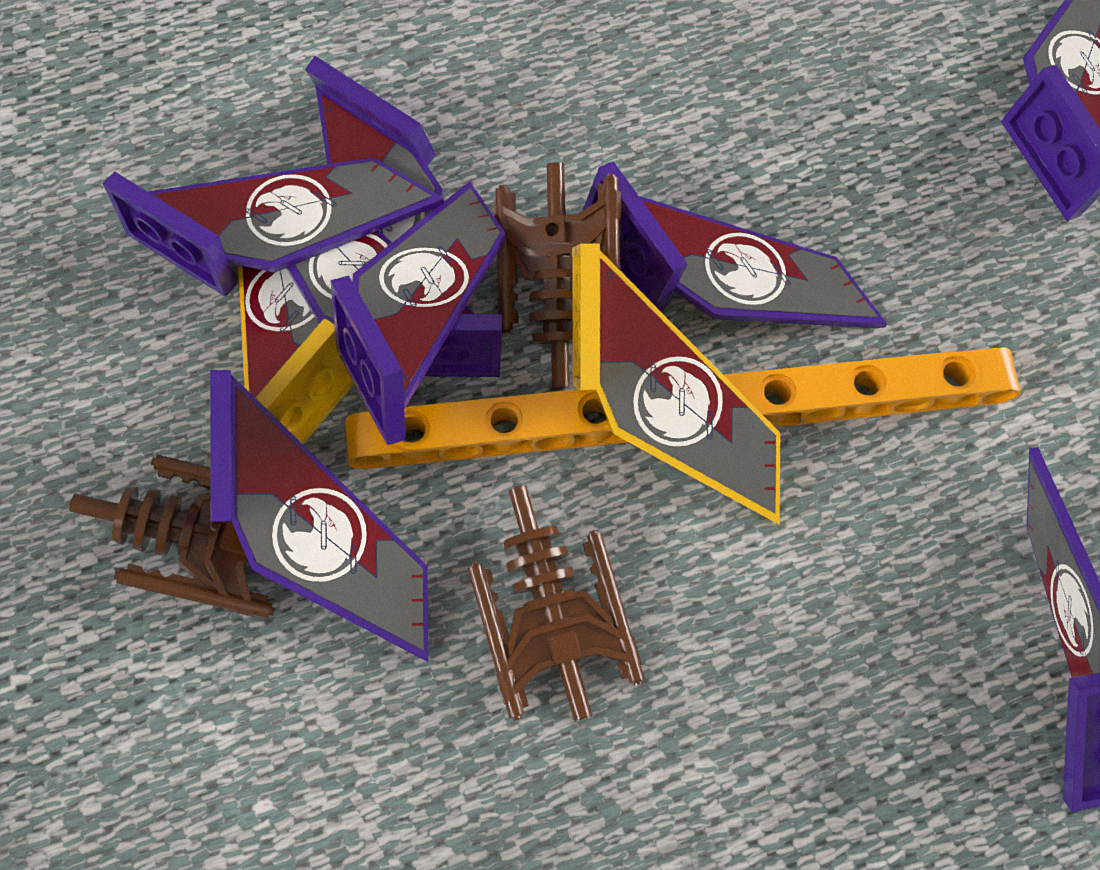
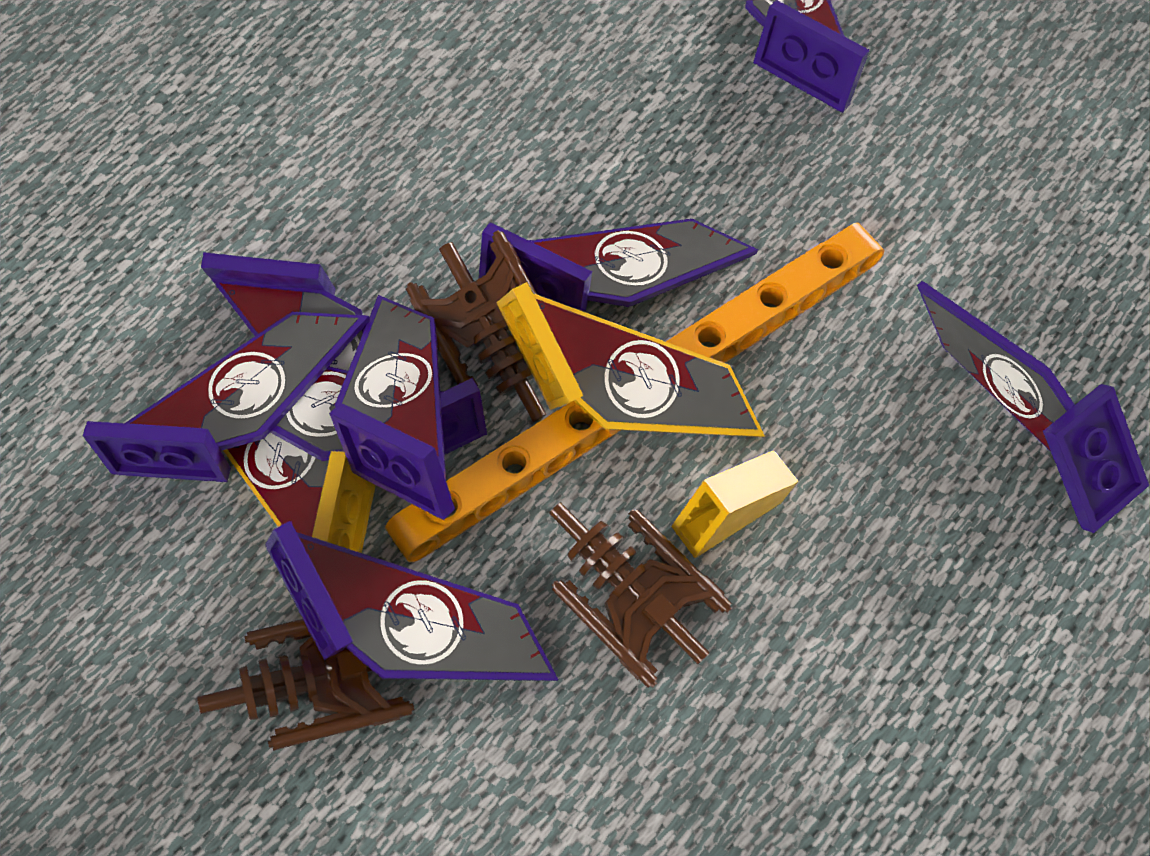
camera: 25 degrees left, 5 degrees down
(704, 575) = (733, 501): none -> yellow slope

